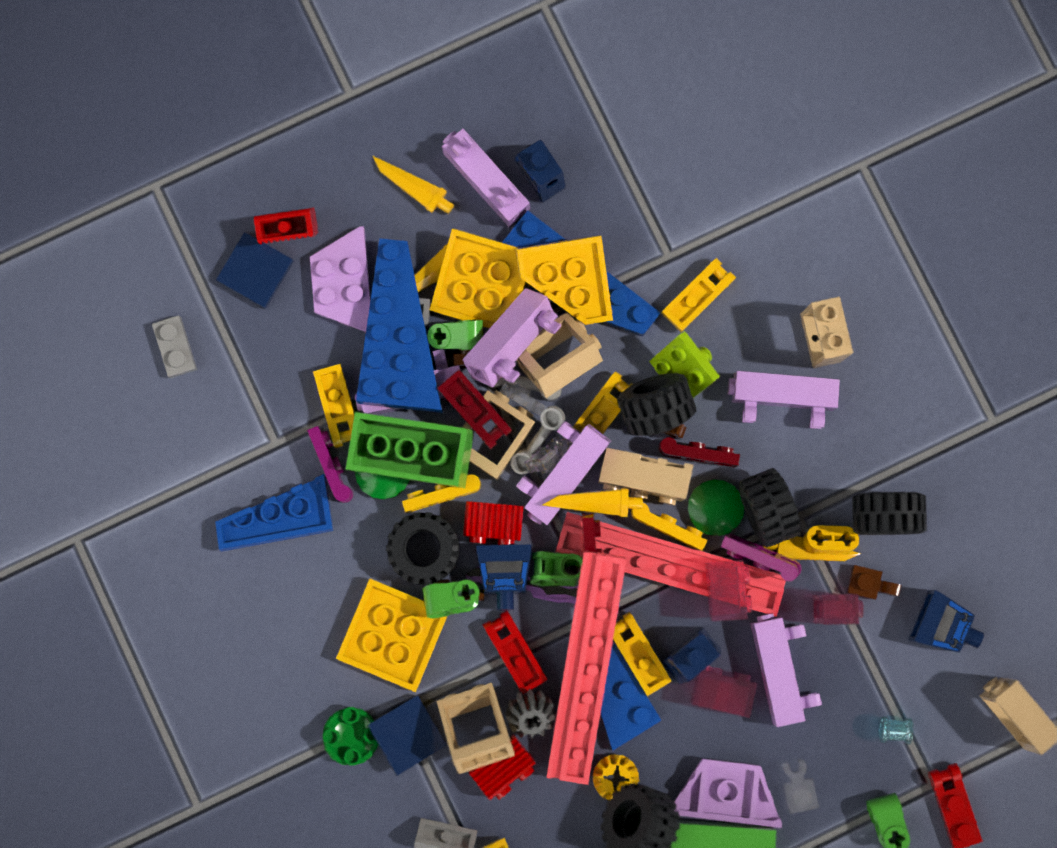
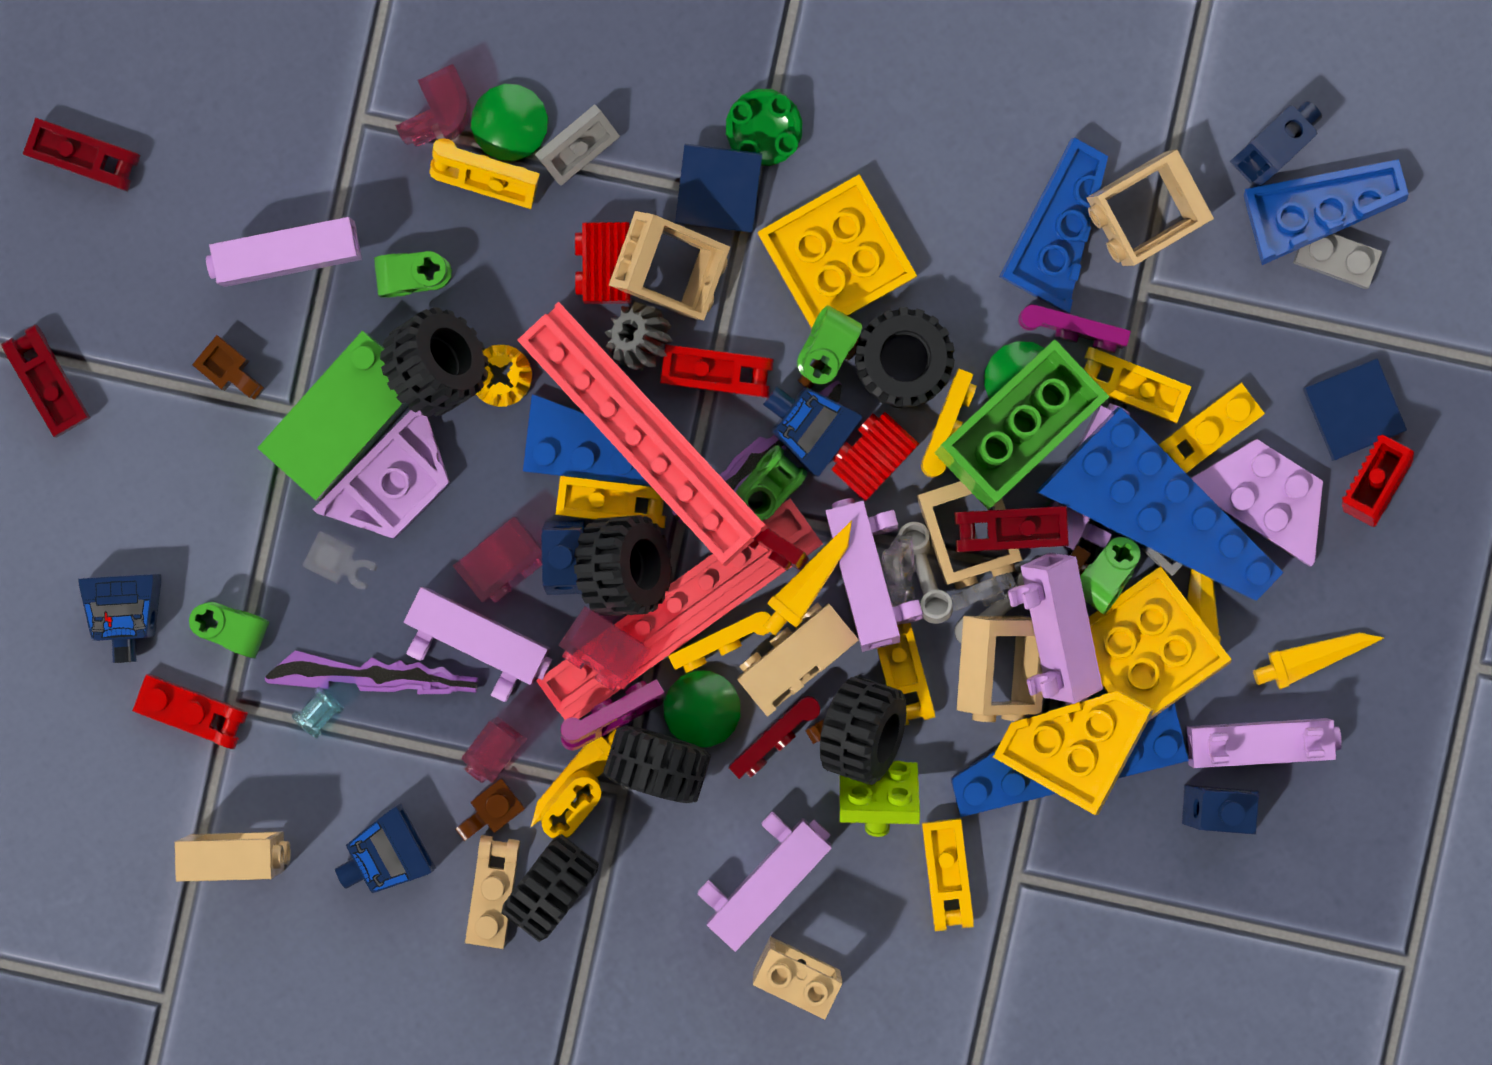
camera: 130 degrees right, 5 degrees up
(134, 430) = (1277, 143): none -> dark blue torso
(155, 381) = (1313, 207): none -> blue wing
(203, 462) = (1181, 188): none -> tan window
(327, 342) = (1213, 427): none -> yellow plate
(671, 617) = (623, 565): none -> black tyre
(848, 714) = (315, 671): none -> medium lavender sword
(917, 547) = (490, 891): none -> tan plate

